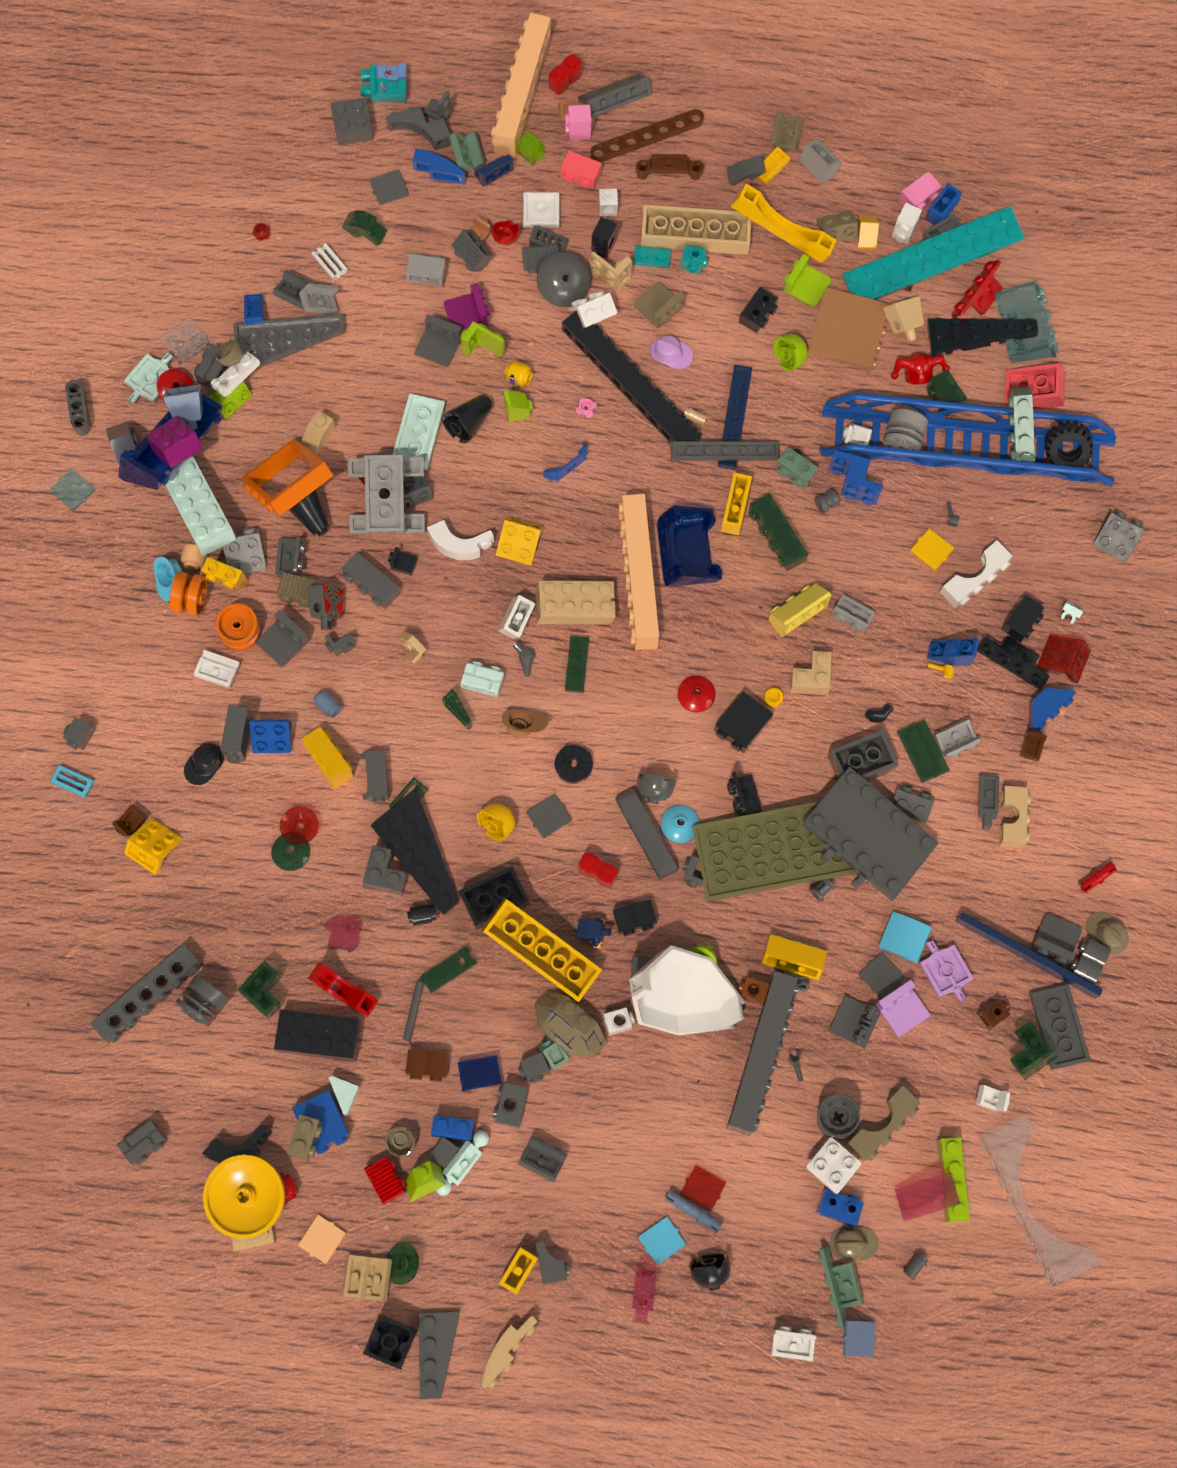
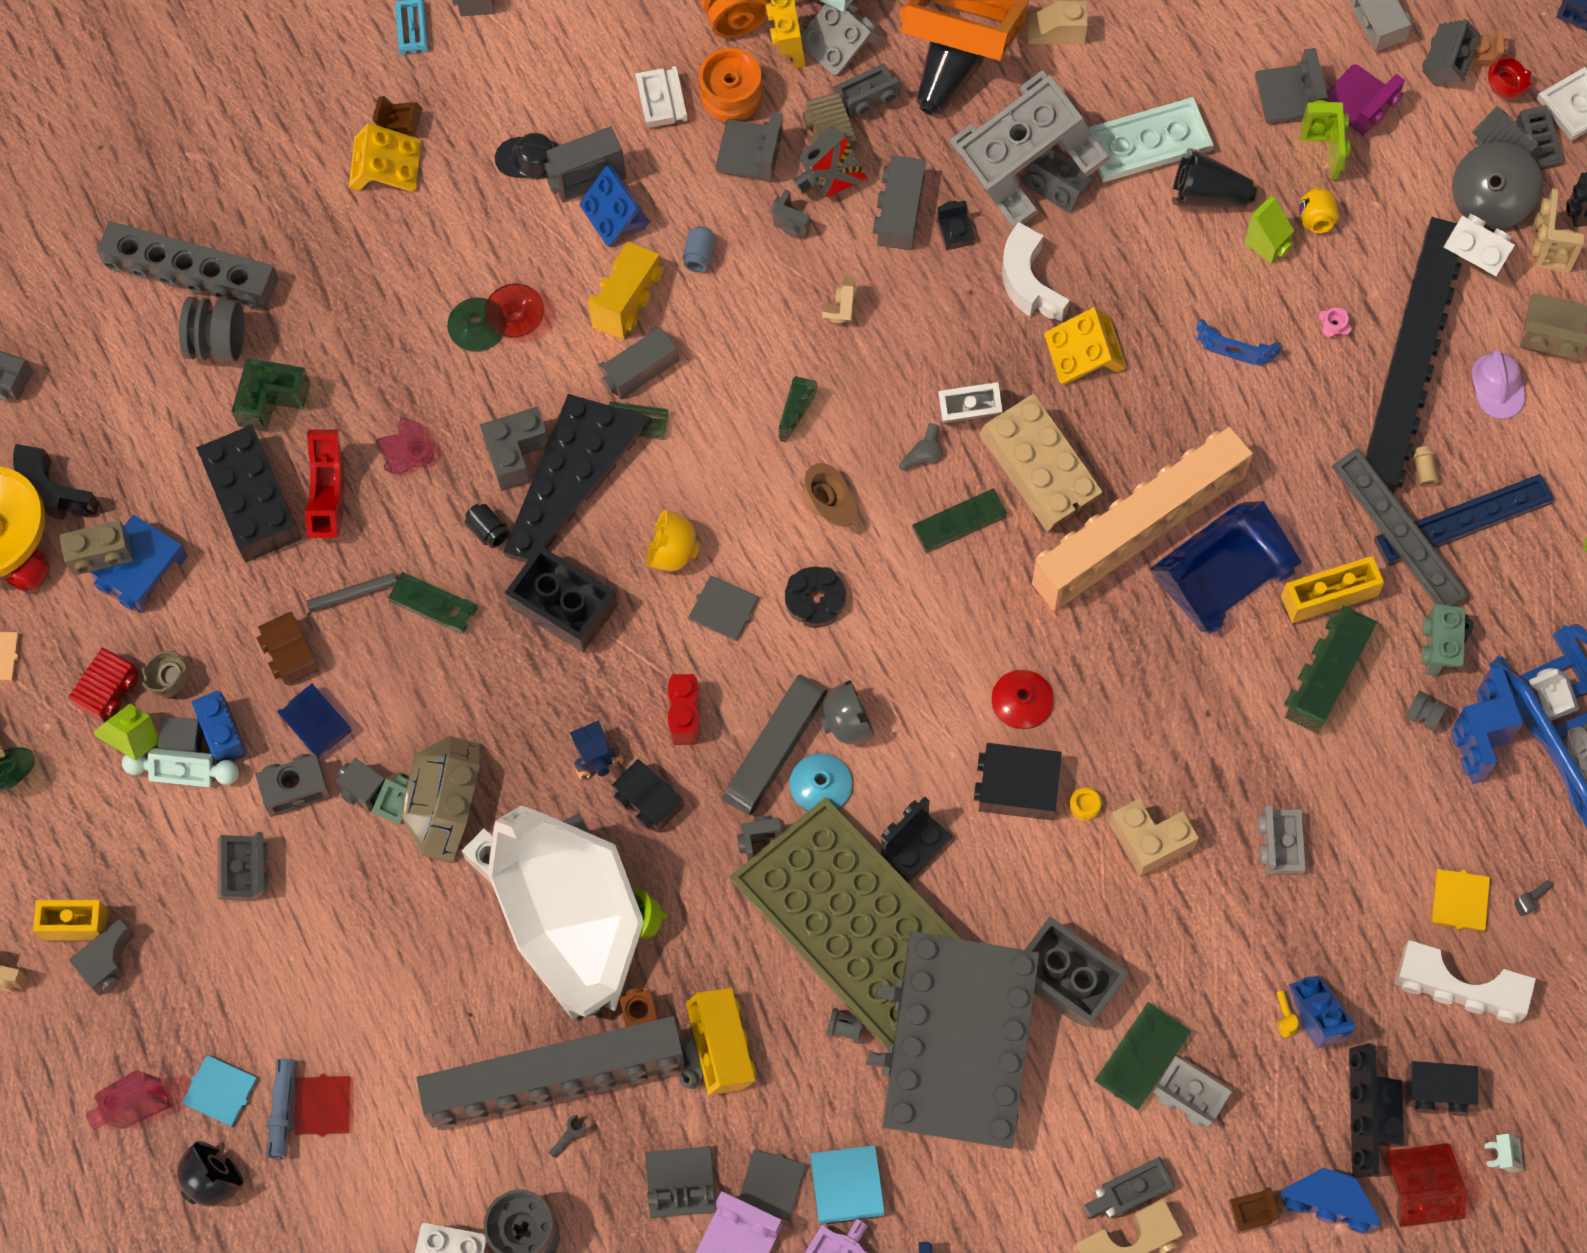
camera: 65 degrees right, 5 degrees down
(345, 1093) = (190, 571): light aqua slope -> none
(482, 679) = (857, 414): light aqua brick -> none
(541, 949) = (520, 693): yellow brick -> none
(799, 609) = (1235, 762): light yellow slope -> none
(879, 716) = (1154, 963): black arm -> none
(913, 803) = (1055, 1082): dark grey bracket -> none

